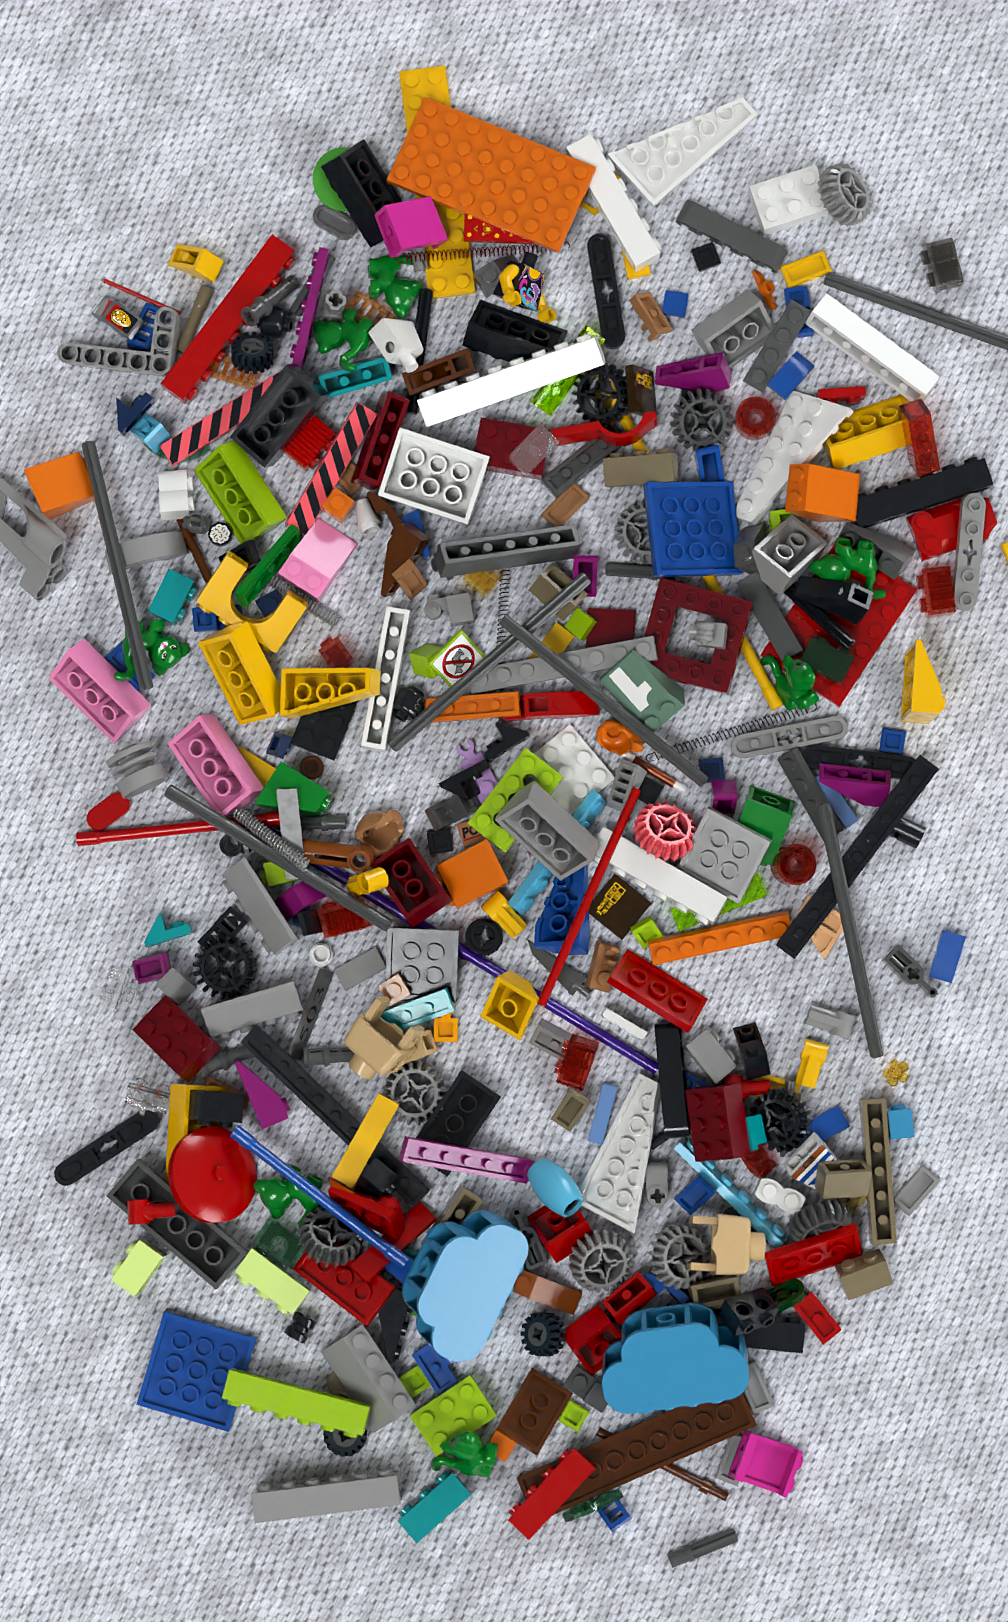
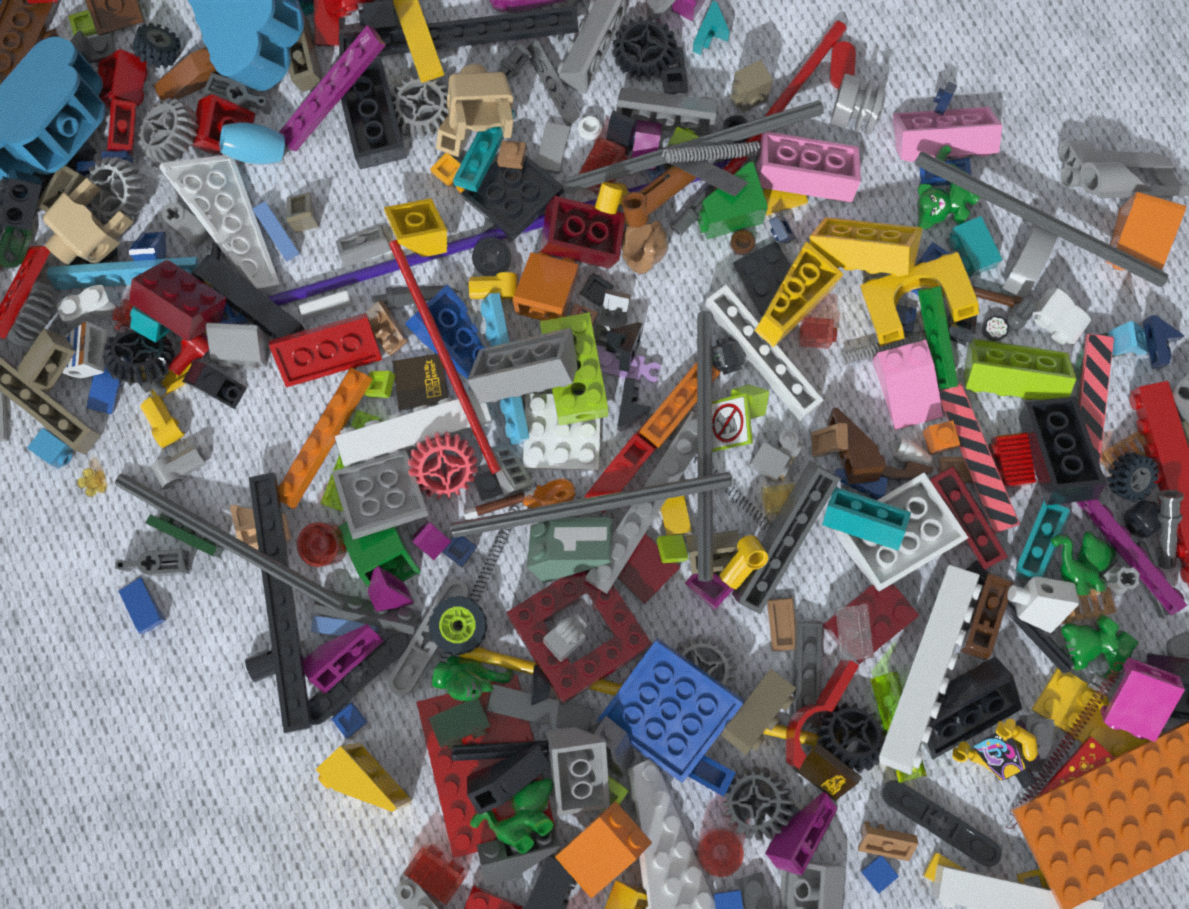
camera: 135 degrees right, 5 degrees down
(74, 712) = (944, 97): none -> dark blue plate
(191, 858) = (751, 86): none -> dark tan brick
(449, 504) = (866, 518): none -> teal brick
(546, 561) = (748, 558): none -> yellow piece
(576, 1062) = (329, 241): clear red brick -> none
(631, 570) = (683, 627): dark grey axle -> none
(755, 629) = (539, 686): none -> black slope
(772, 710) = (443, 629): none -> black wheel
(784, 790) = (388, 591): none -> magenta slope
(873, 971) = (185, 534): none -> dark green plate

